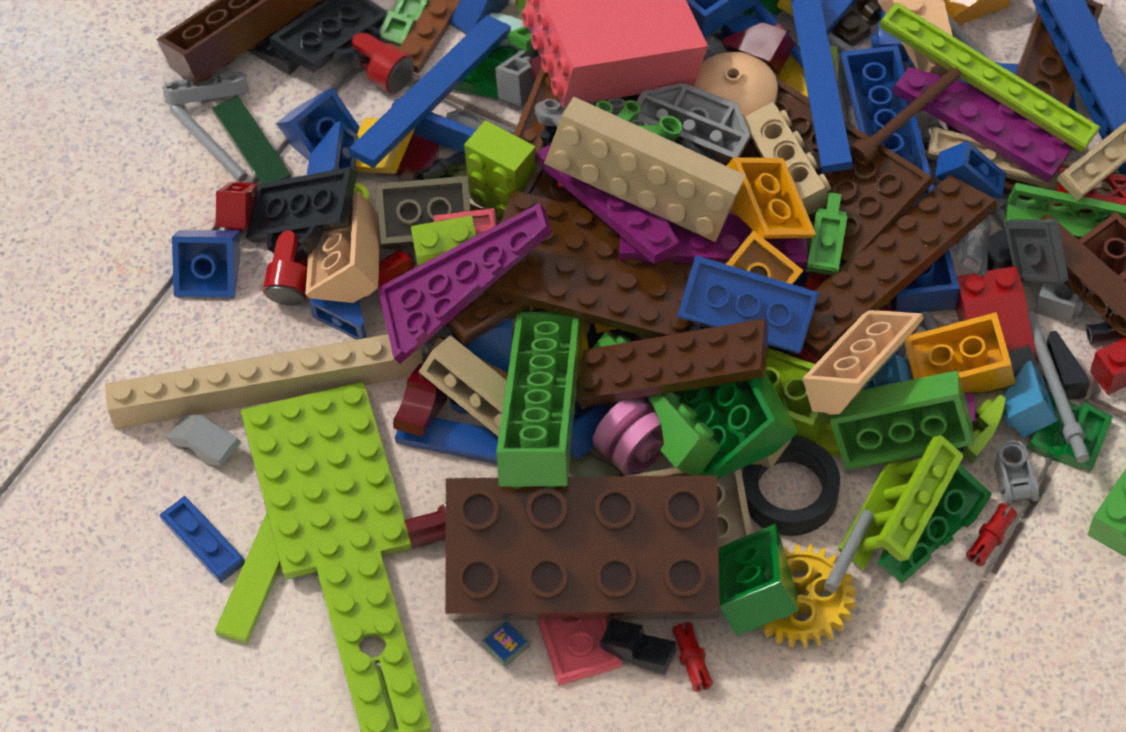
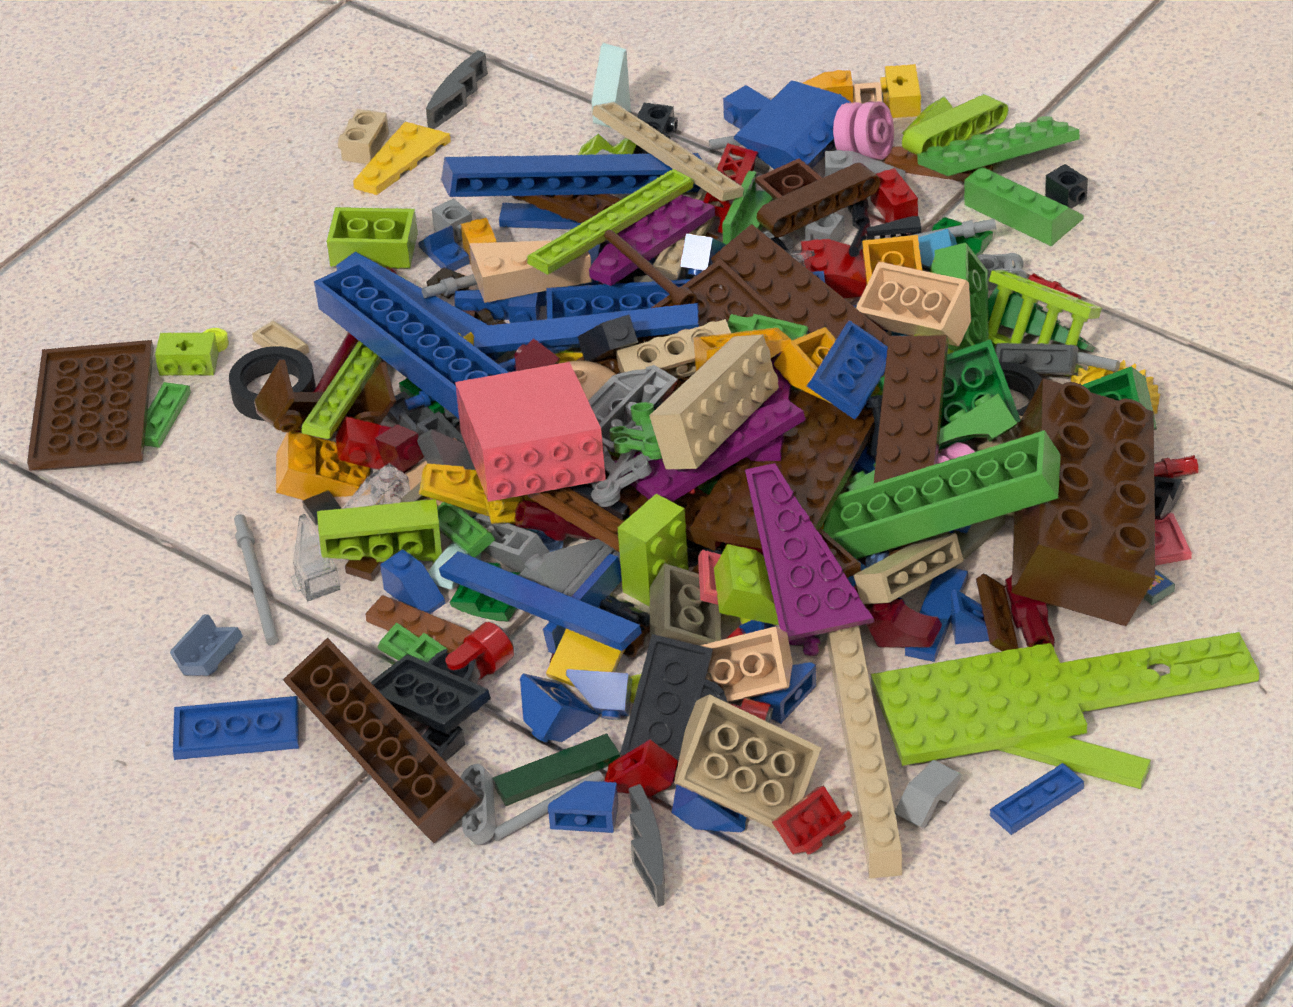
camera: 85 degrees left, 15 degrees down
(138, 221) = (646, 846): none -> dark grey slope
(166, 342) = (811, 821): none -> red bracket
(195, 170) = (586, 808): none -> blue slope
(216, 272) = (744, 761): none -> tan slope
(430, 493) = (996, 613): none -> reddish brown tile
(438, 464) = (967, 619): none -> blue slope
(493, 103) = (560, 566): none -> light grey slope
(794, 99) = (608, 338): none -> black slope
(848, 510) = (1040, 358): none -> dark grey tile
(1037, 250) = (796, 217): dark grey tile -> none
(1044, 328) = (860, 236): none -> black bar

